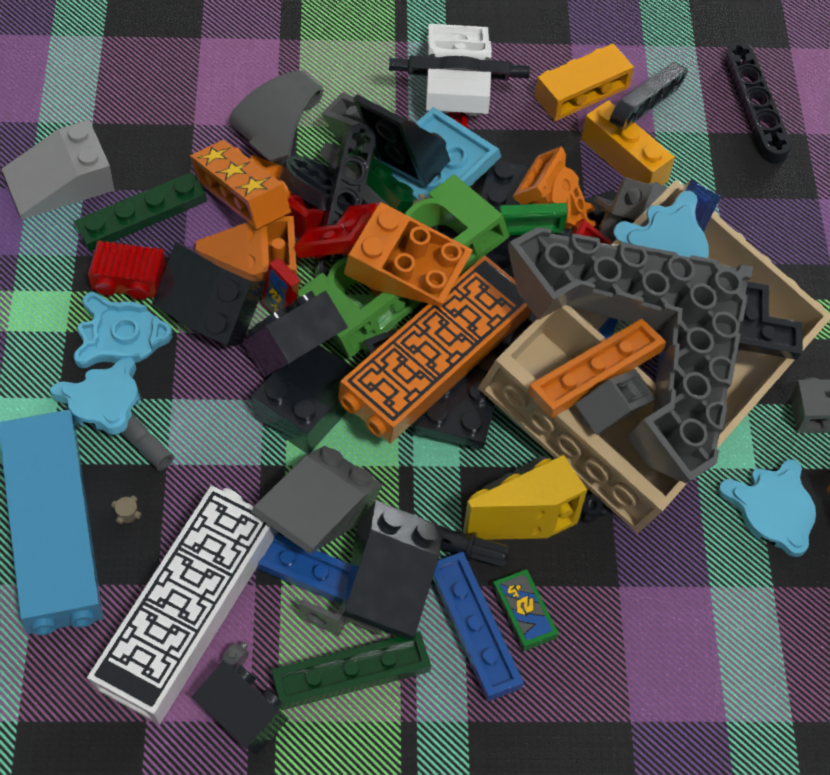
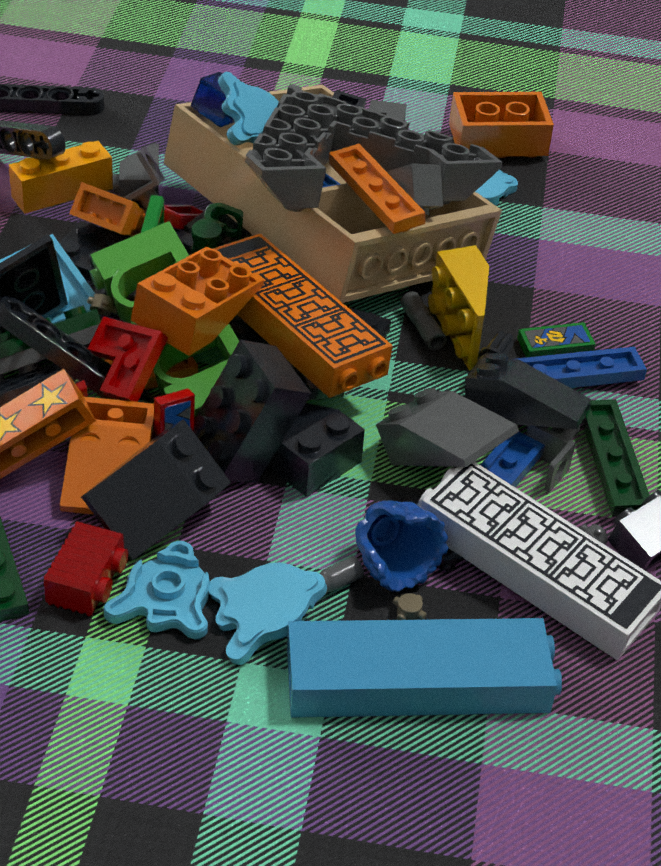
camera: 80 degrees left, 15 degrees down
(175, 481) = (400, 543): none -> blue hair

